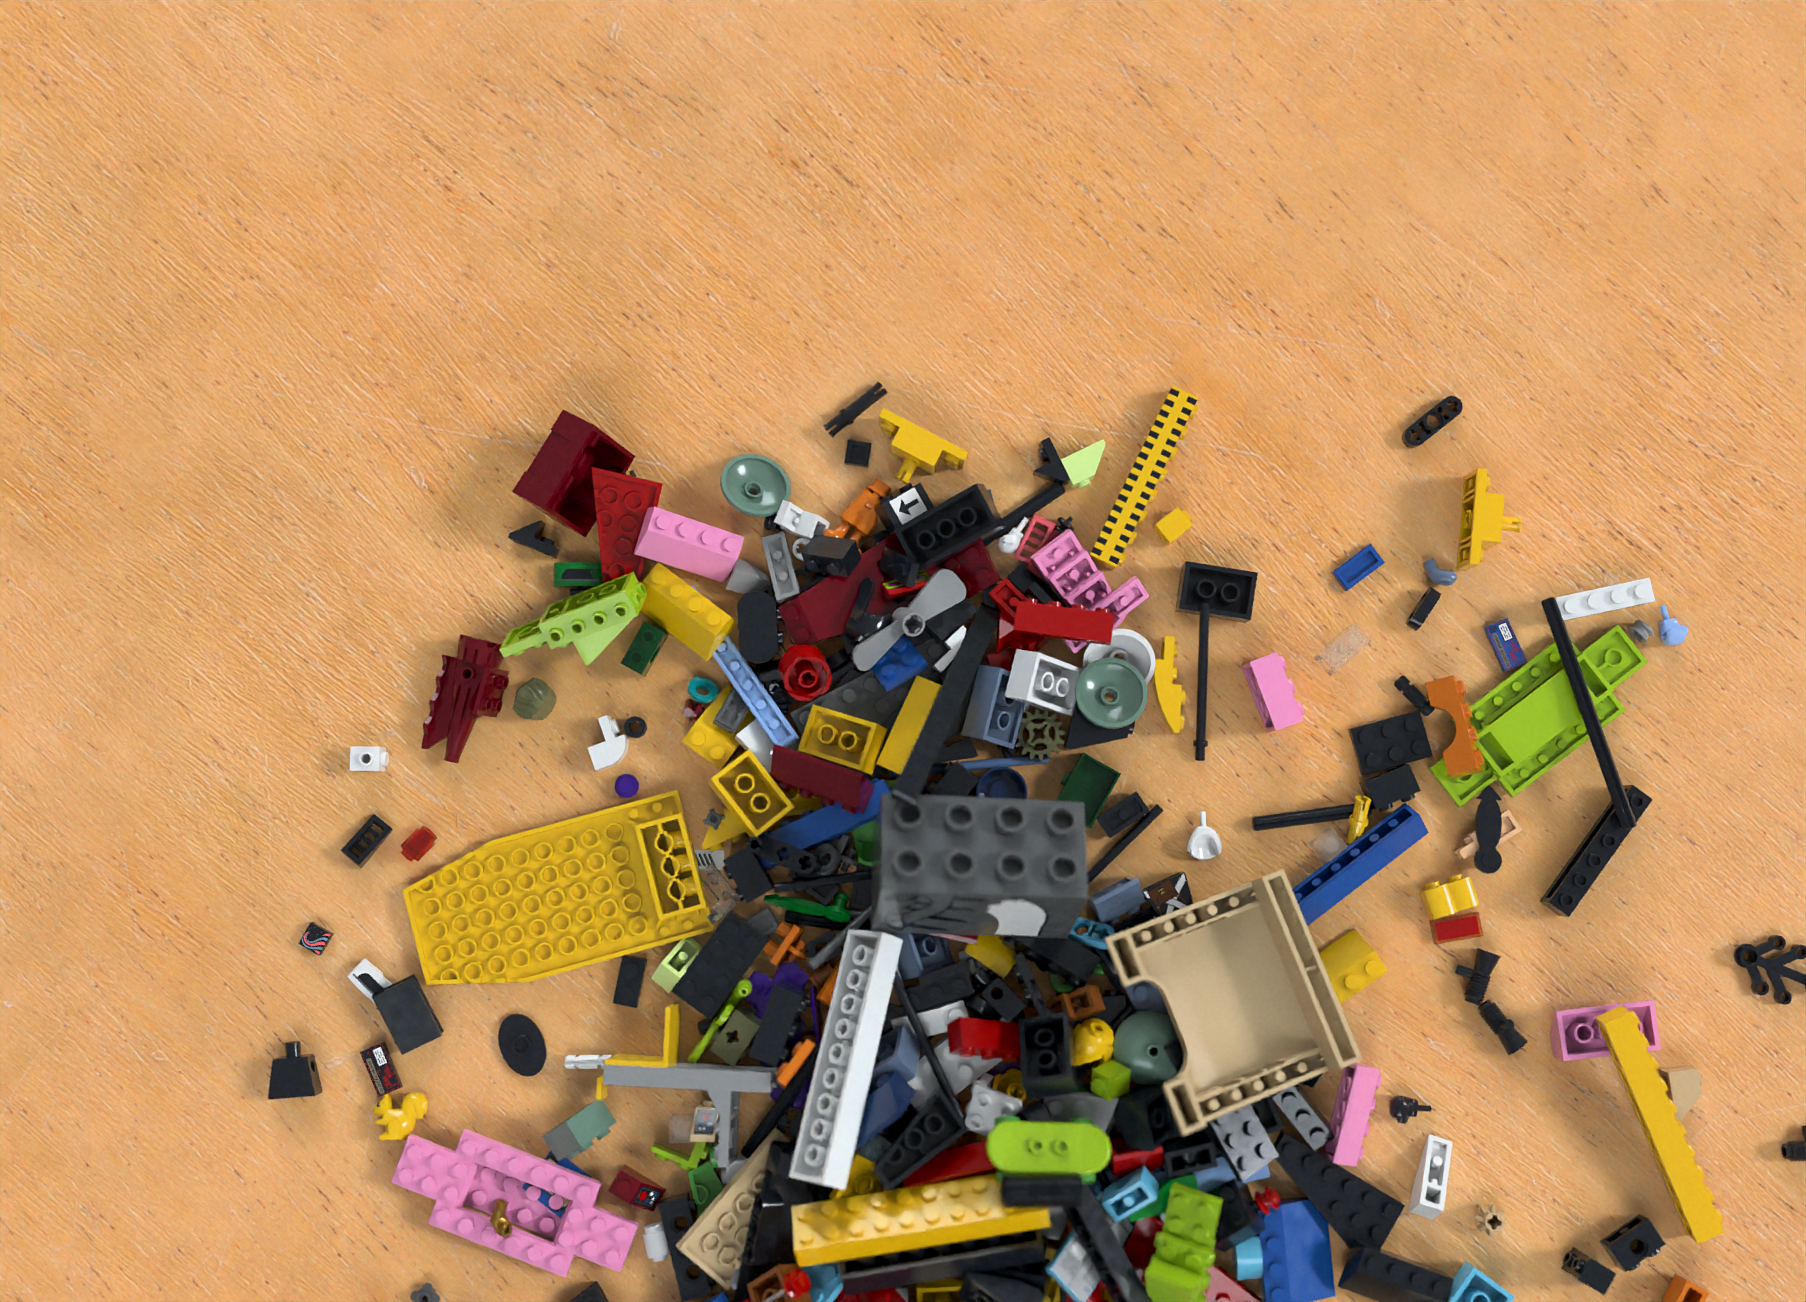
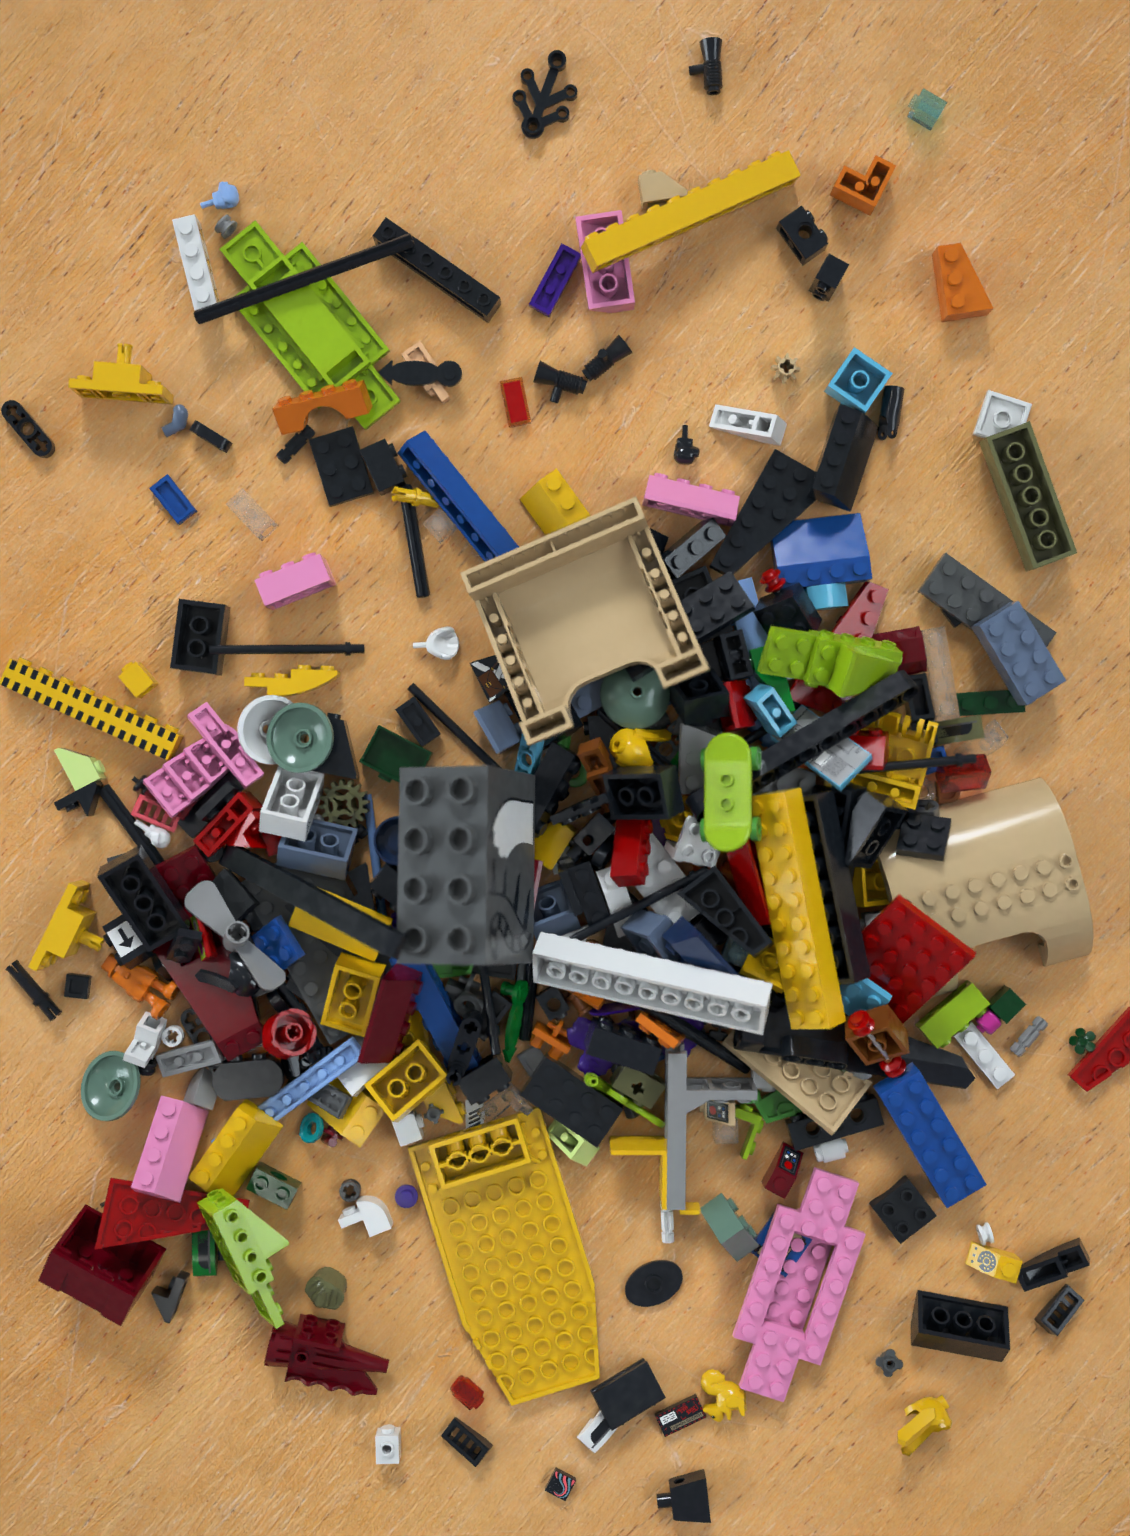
camera: 90 degrees left, 5 degrees up
(499, 1219) = (814, 1299): pearl gold arm -> none
(630, 981) = (590, 1184): black plate -> none
(698, 791) = (409, 1128): none -> white brick
(831, 555) = (175, 1011): black brick -> none
(839, 939) = (545, 991): dark grey bar -> none
(953, 644) = (257, 892): white slope -> none
(1033, 1190) = (767, 805): black piece -> none
(1064, 622) = (232, 786): red brick -> none
(1110, 1080) = (665, 731): lime brick -> none
(1449, 897) = (486, 409): yellow brick -> none
(1505, 645) = (243, 357): tile -> none
(1585, 974) = (555, 280): none -> dark purple plate

